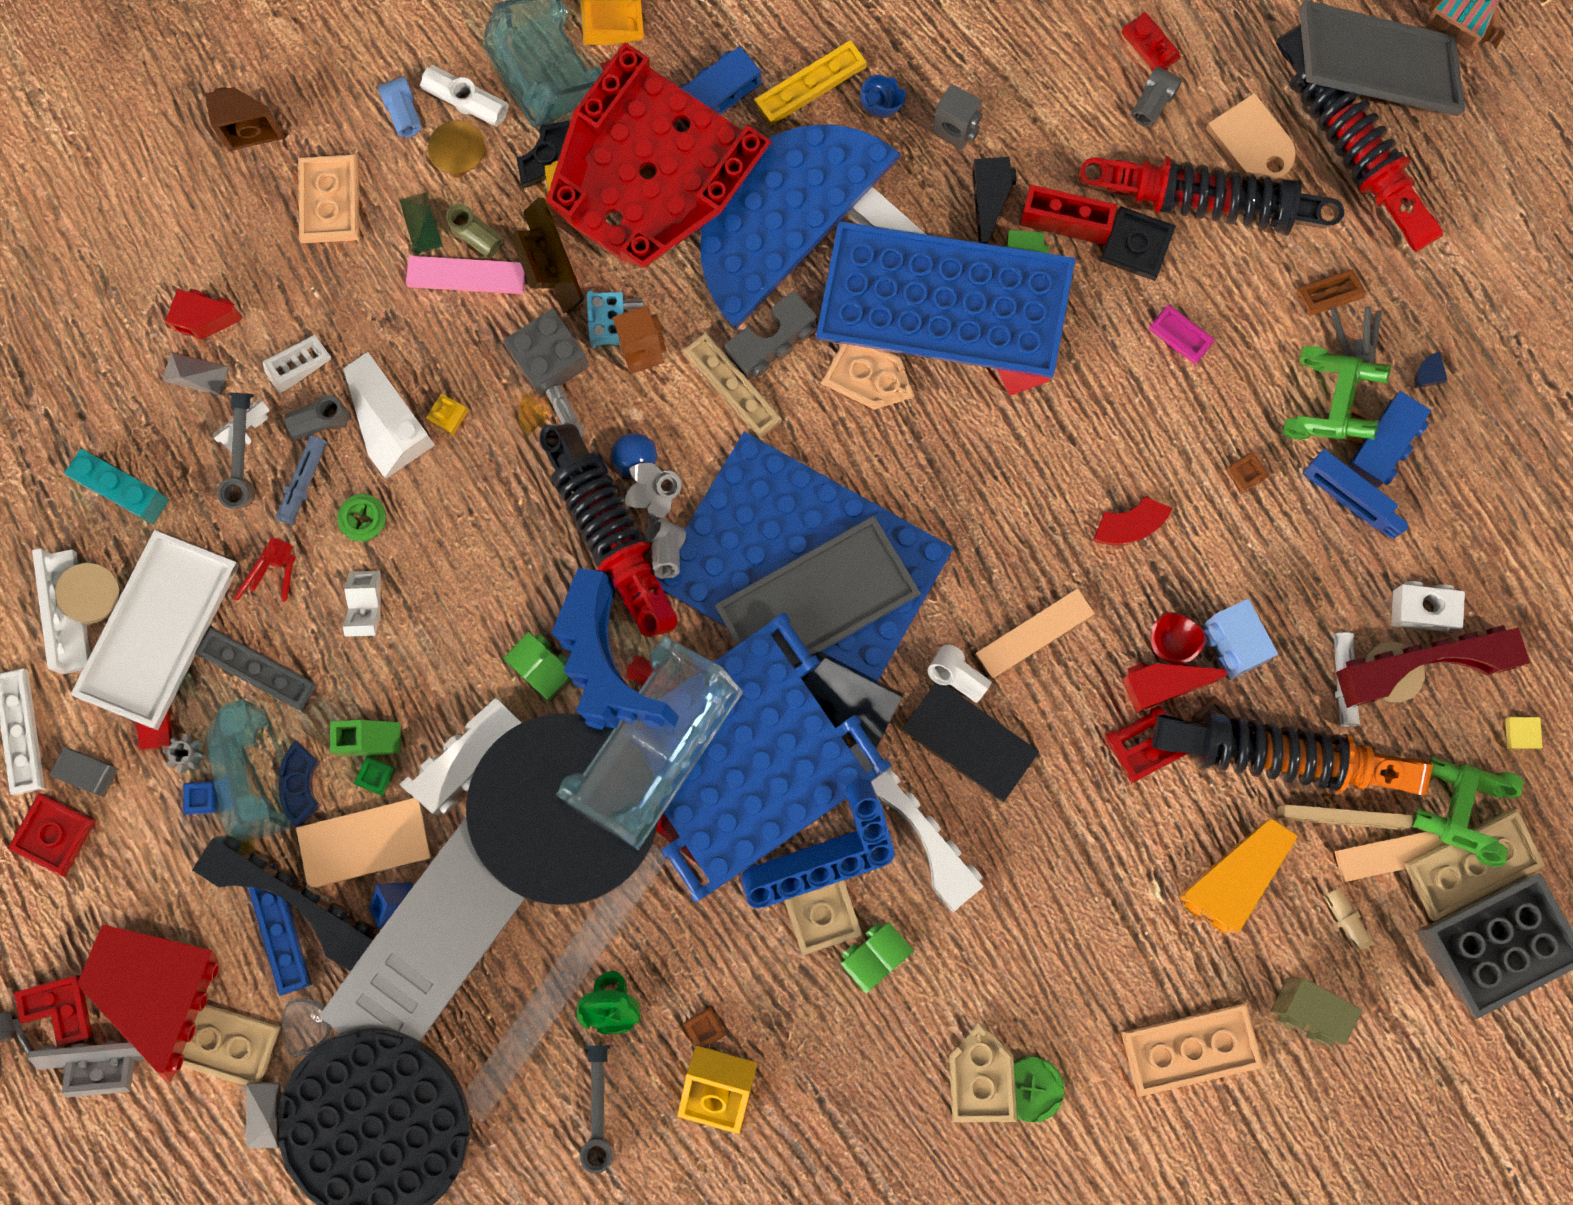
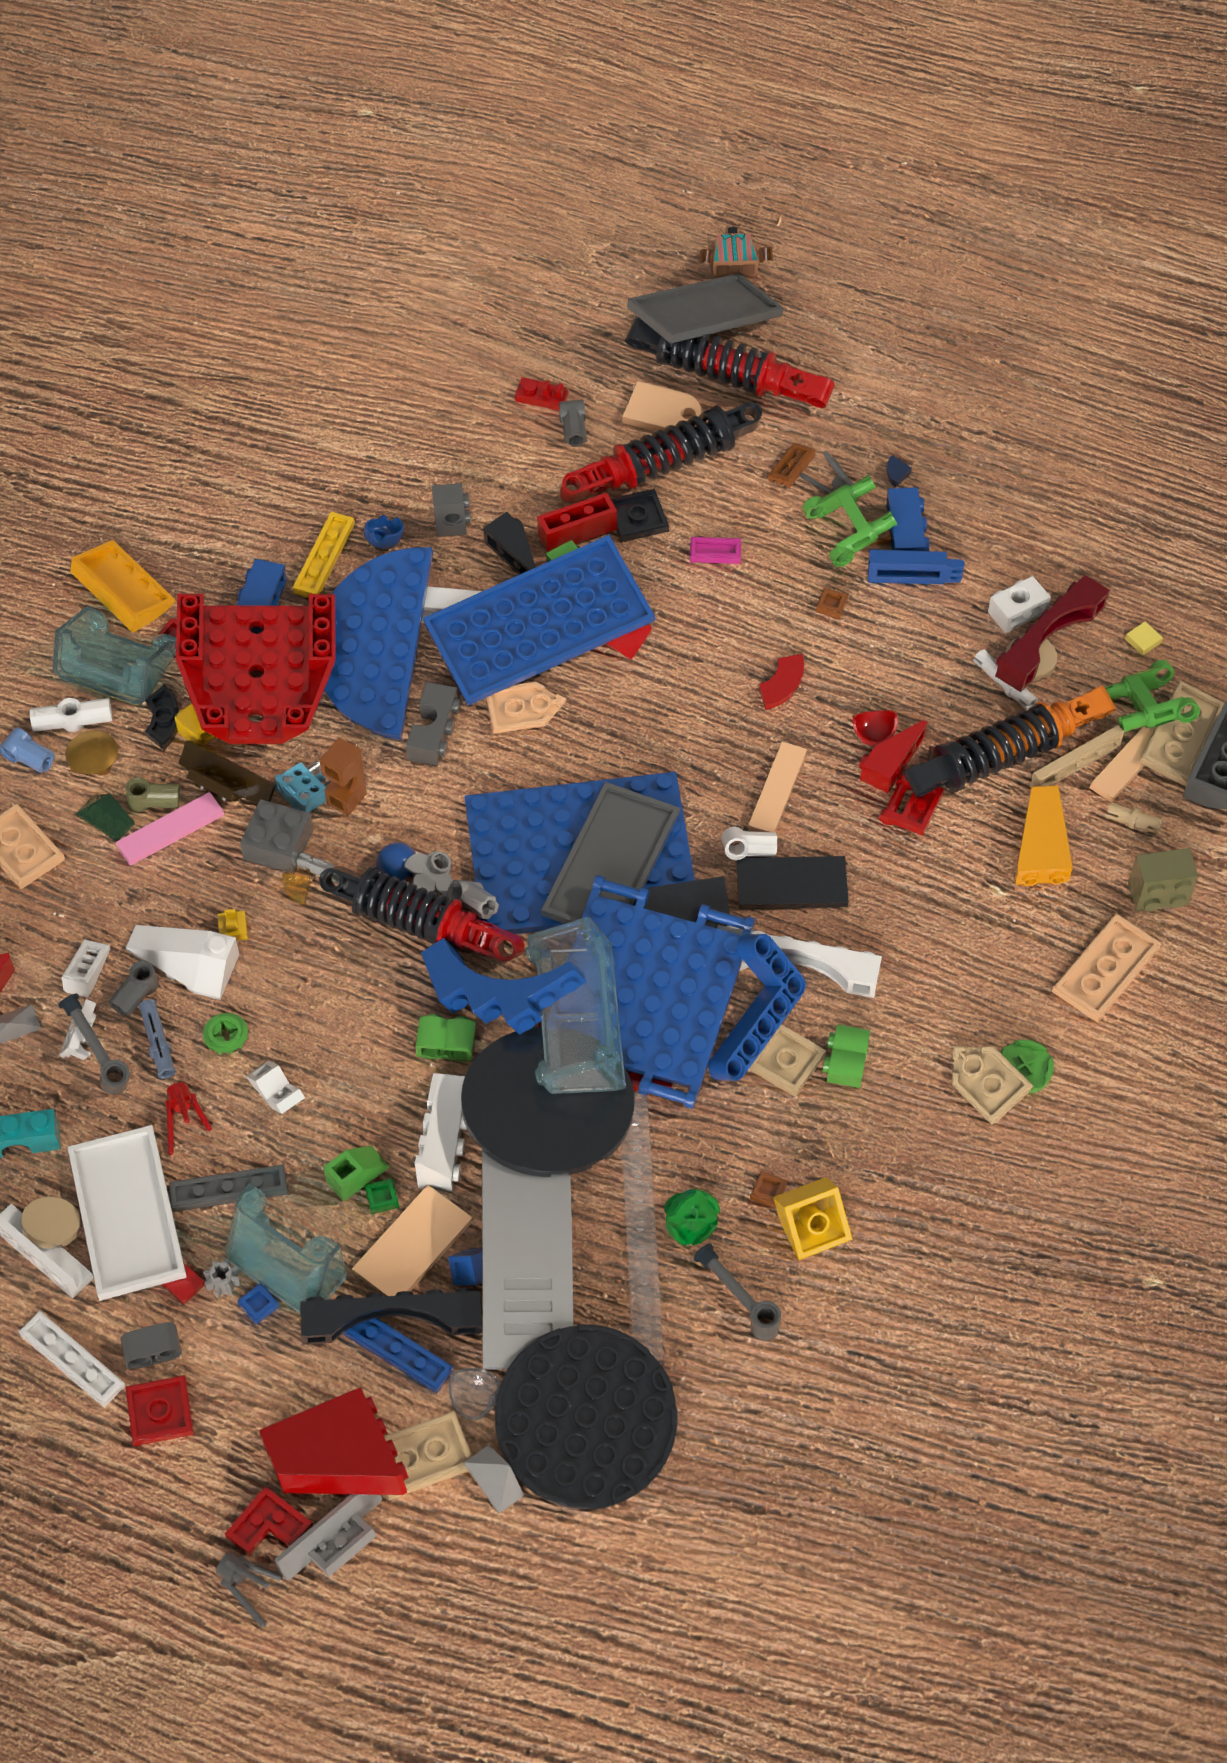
camera: 40 degrees left, 20 degrees down
(296, 784) = (320, 1225): dark blue tile -> none
(732, 385) = (429, 774): tan tile -> none
(1239, 639) = (916, 695): light blue brick -> none

